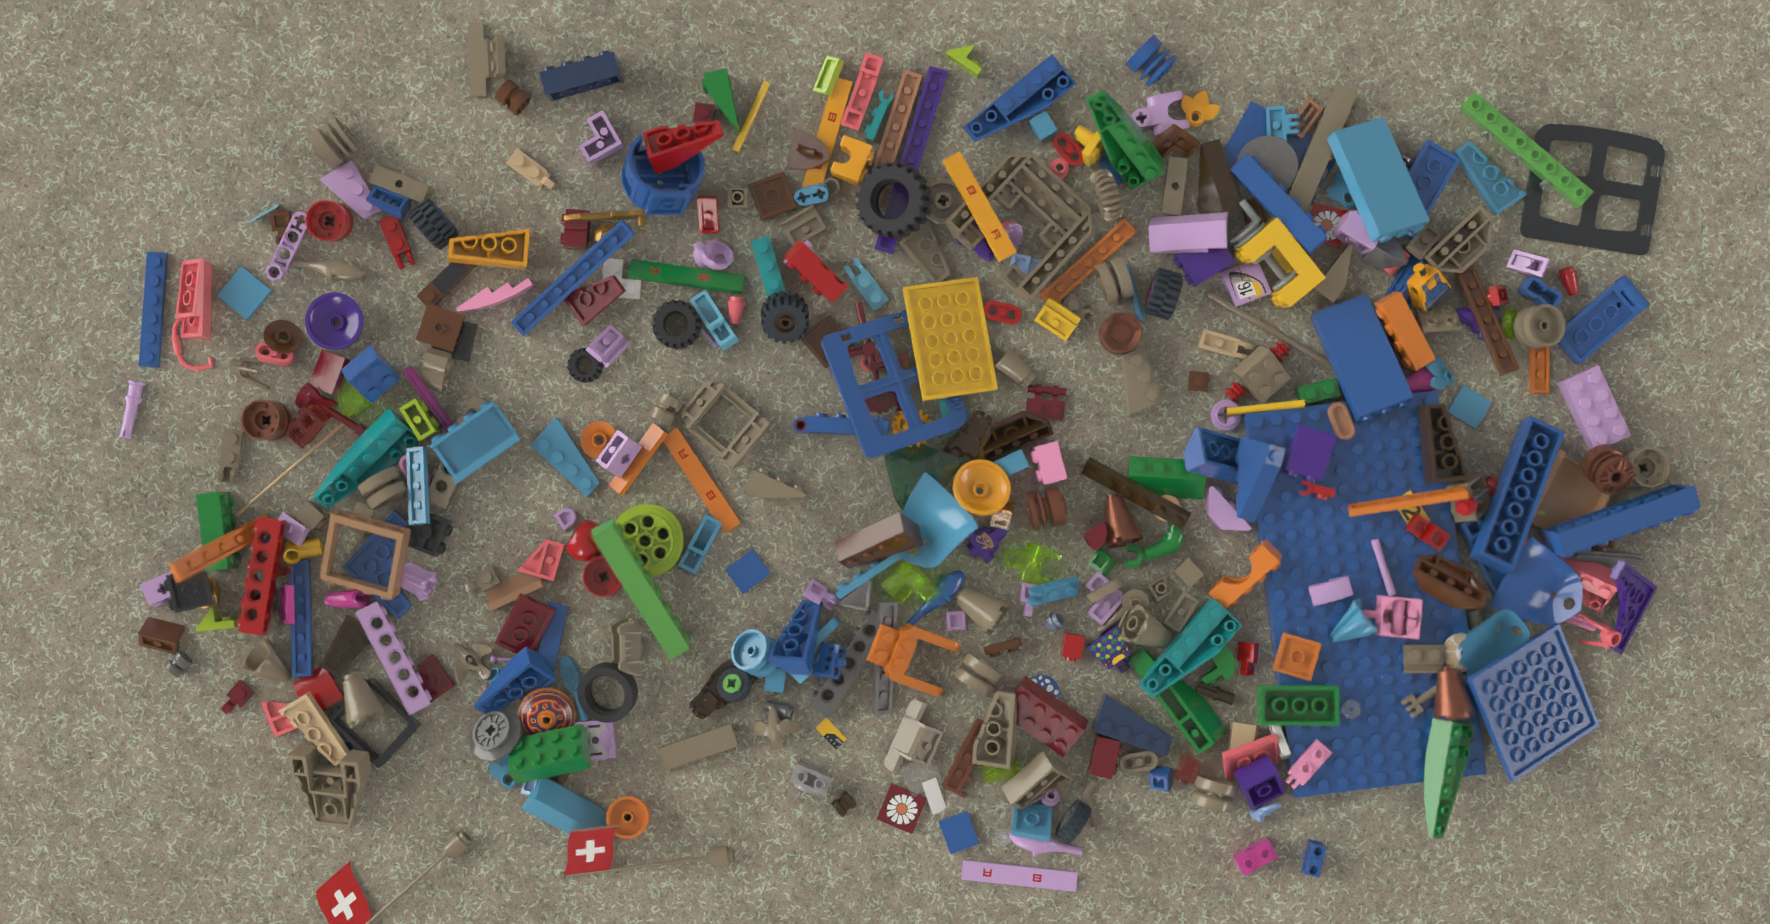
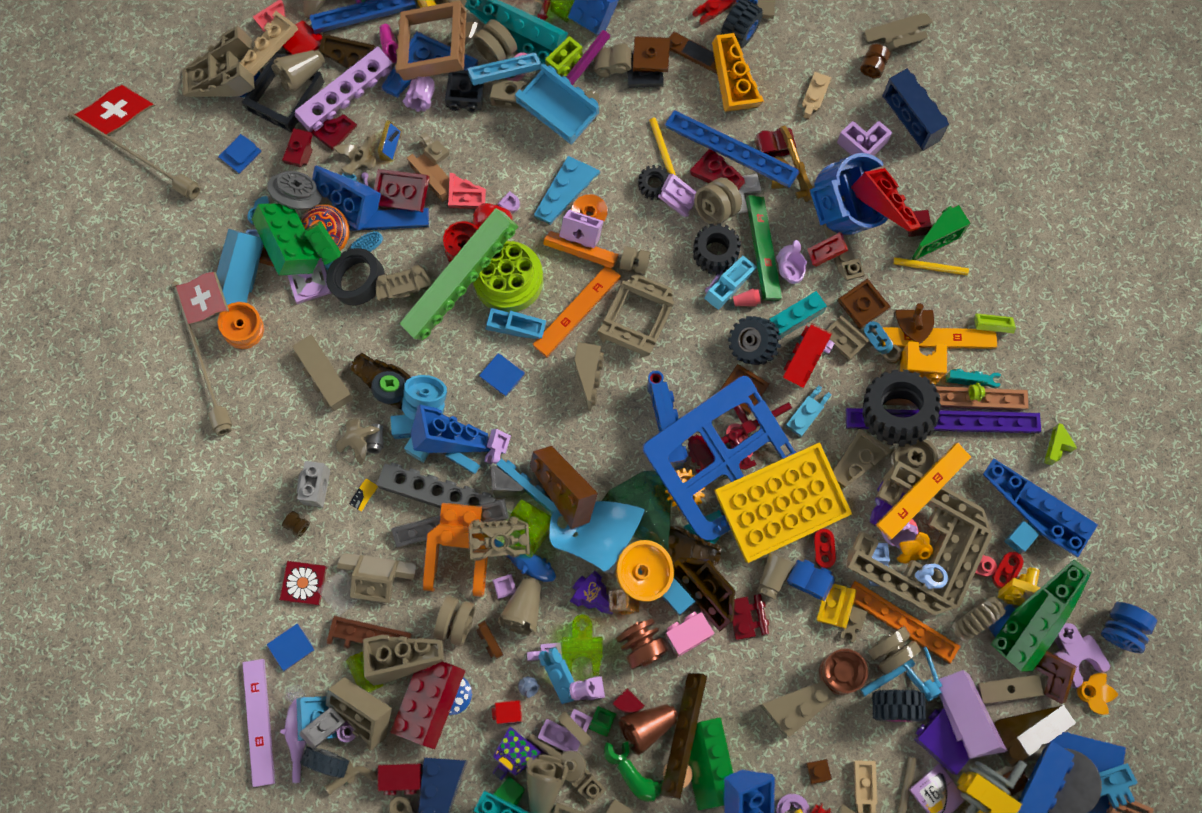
camera: 80 degrees right, 15 degrees down
(432, 782) = (240, 153): none -> blue piece
(448, 720) = (298, 148): none -> dark red brick
(463, 624) = (389, 141): none -> slope
(488, 298) = (690, 89): bright pink slope -> none
(550, 345) = (662, 147): none -> yellow bar
(565, 717) = (322, 242): none -> green brick
(629, 309) = (718, 201): none -> dark tan wheel
(829, 660) = (433, 469): blue piece -> none
(862, 91) = (991, 359): coral slope -> none
(894, 120) = (976, 392): none -> lime plate
(909, 615) = (493, 530): none -> dark tan piece
(934, 796) = (322, 611): white sticker -> none
(1027, 225) = (915, 550): none -> light orange plate
(1029, 335) = (811, 580): none -> blue brick
(1043, 817) = (322, 728): none -> flat silver plate
(1053, 228) = (925, 574): none -> light blue piece
(1071, 568) = (587, 689): none -> lavender piece
(1156, 261) = (930, 688): none -> dark azure plant

